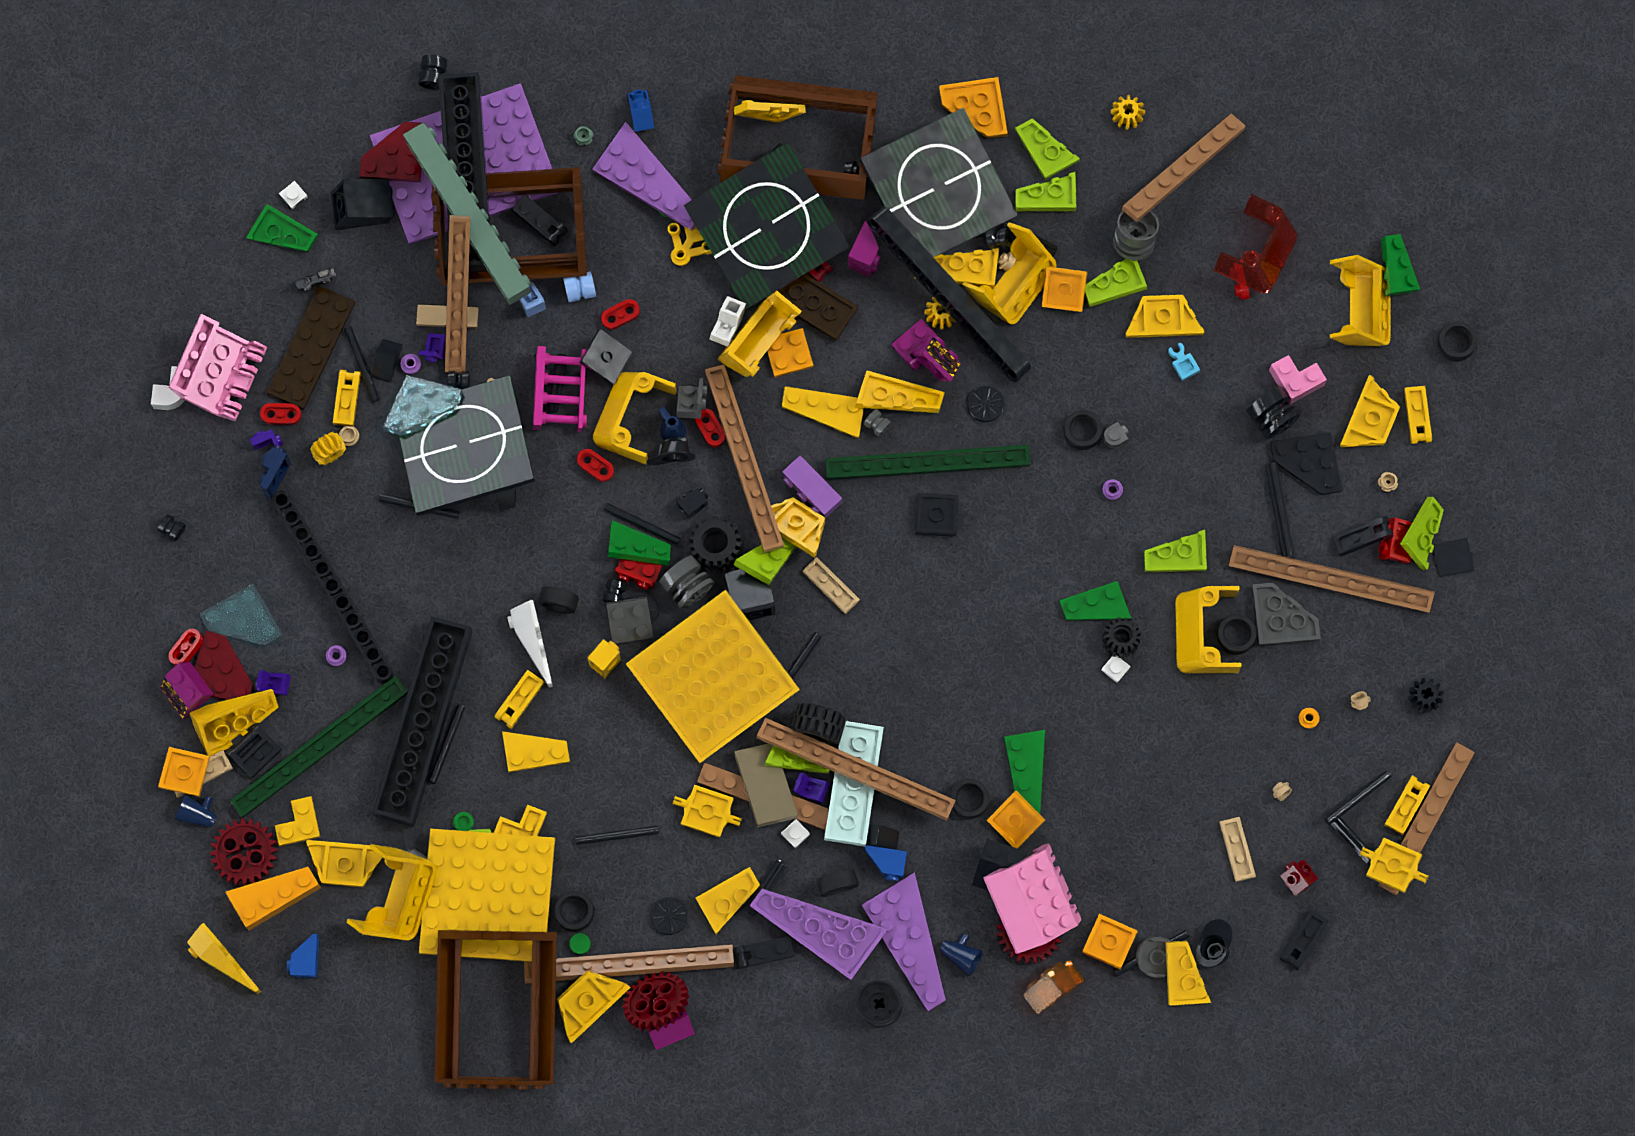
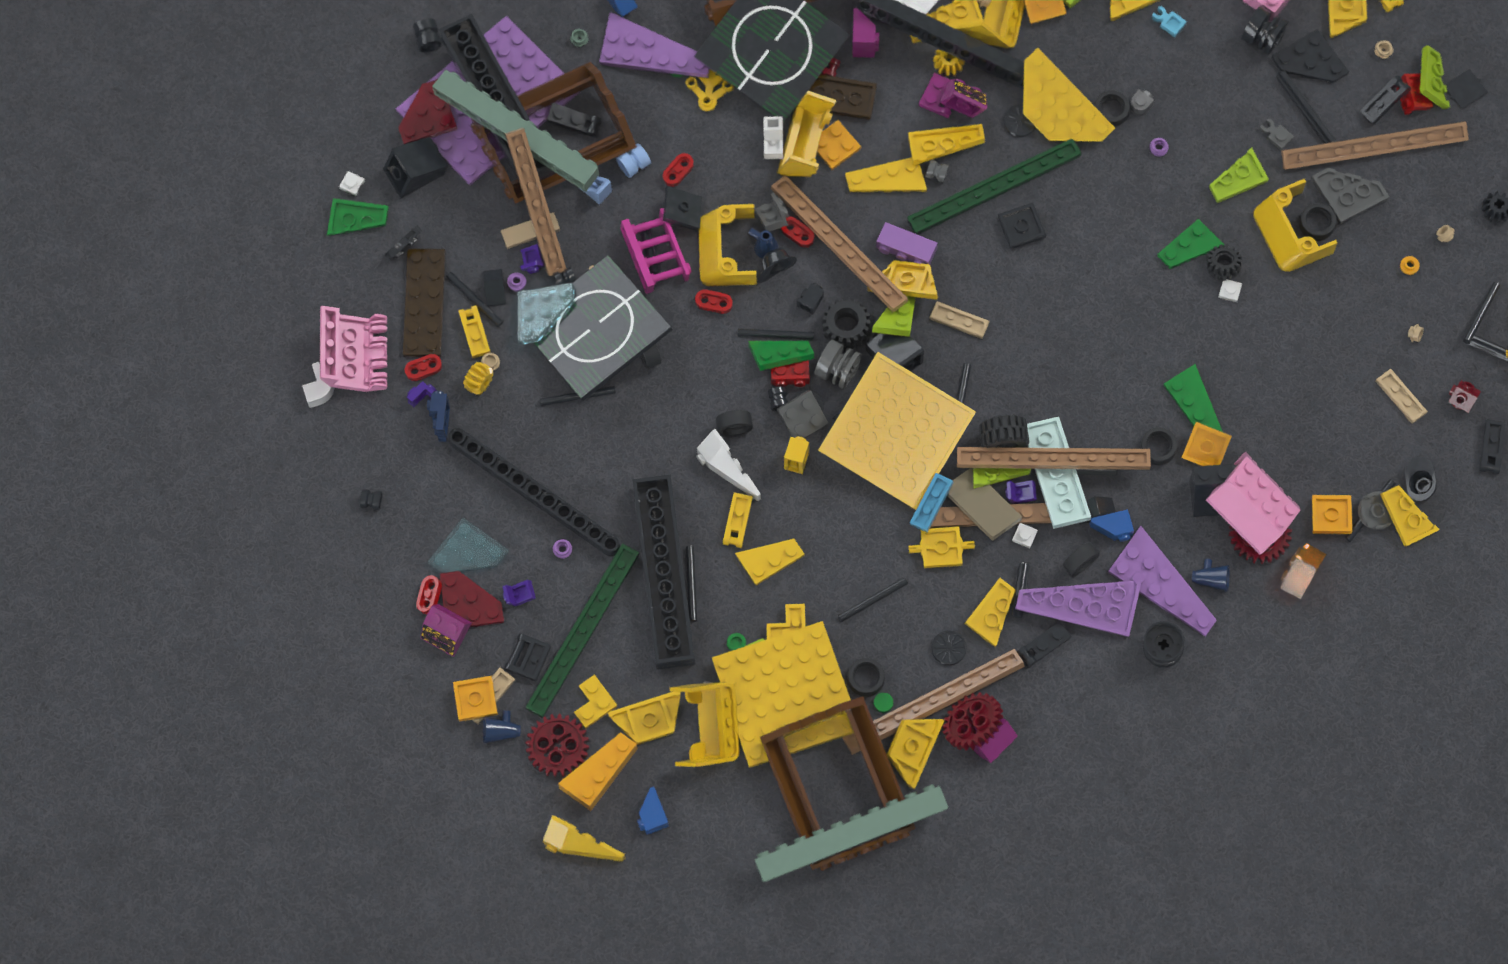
camera: 20 degrees left, 5 degrees down
(225, 720) = (490, 641): yellow wedge -> none
(483, 1064) = (850, 834): none -> sand green brick
(715, 763) = (931, 502): none -> dark azure plate
(1028, 406) = (1057, 104): none -> yellow plate
(1239, 528) = (1278, 136): none -> dark grey plate

